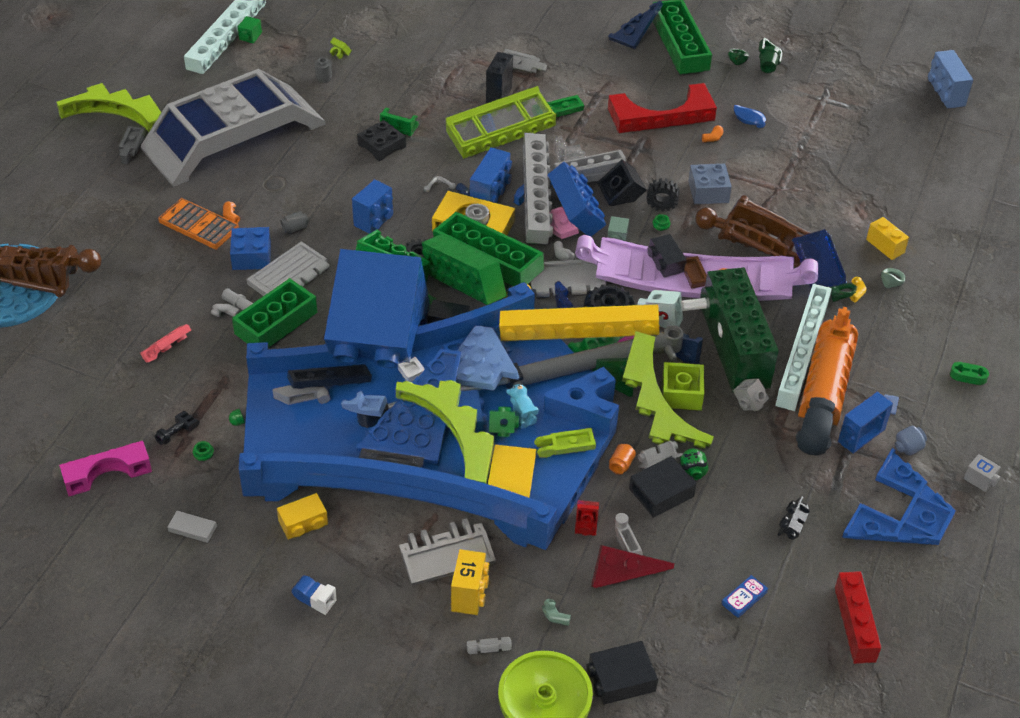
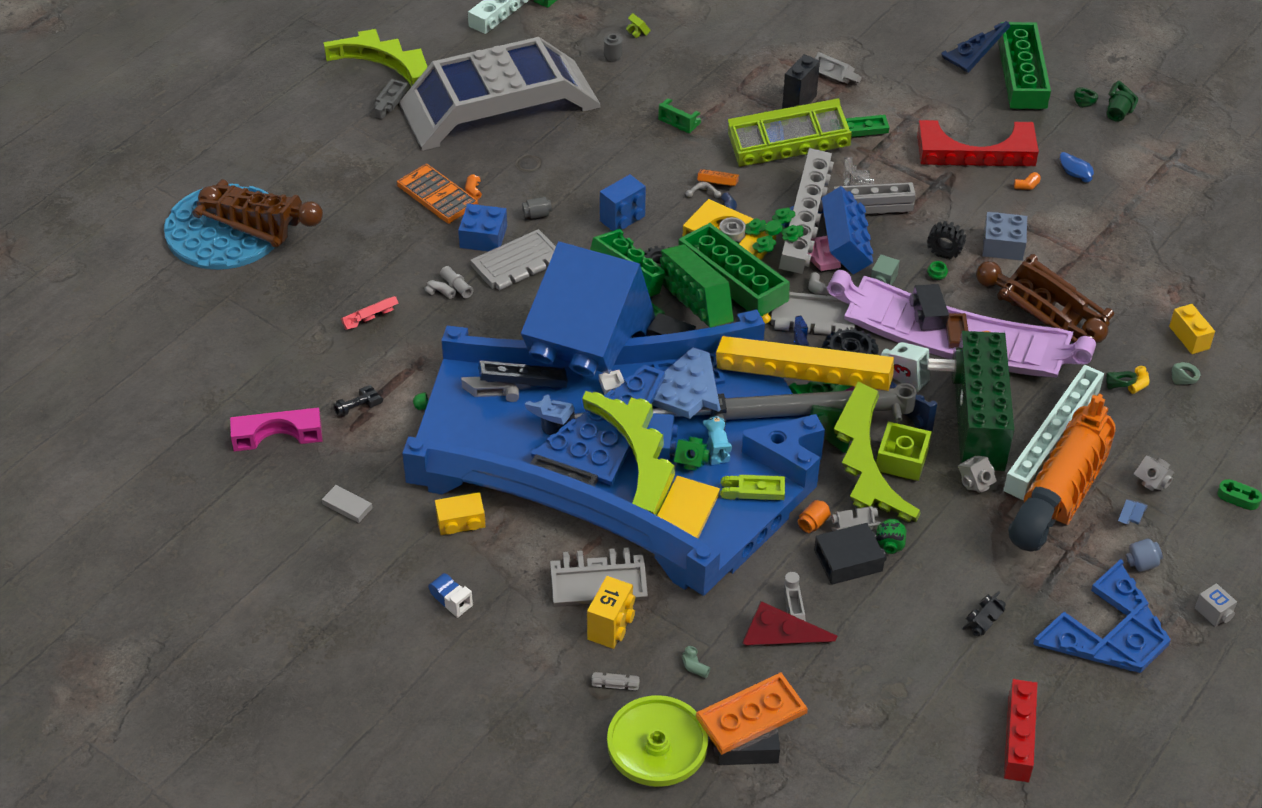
camera: 15 degrees right, 0 degrees up
(203, 451) = (378, 429): green plate -> none
(275, 314) = (489, 301): green brick -> none
(381, 140) = (654, 133): black brick -> none
(448, 170) = (718, 177): none -> orange tile
(491, 176) = (760, 190): blue brick -> none
(513, 208) = (773, 228): none -> green plant
(586, 517) = (756, 570): red slope -> none
(621, 184) = (905, 221): black slope -> none
(623, 651) = (751, 713): none -> orange tile
(744, 596) = (904, 685): tile -> none
(821, 249) = (1107, 330): clear blue piece -> none
(865, 422) = (1096, 525): blue window -> none
(892, 362) = (1154, 473): none -> light grey brick

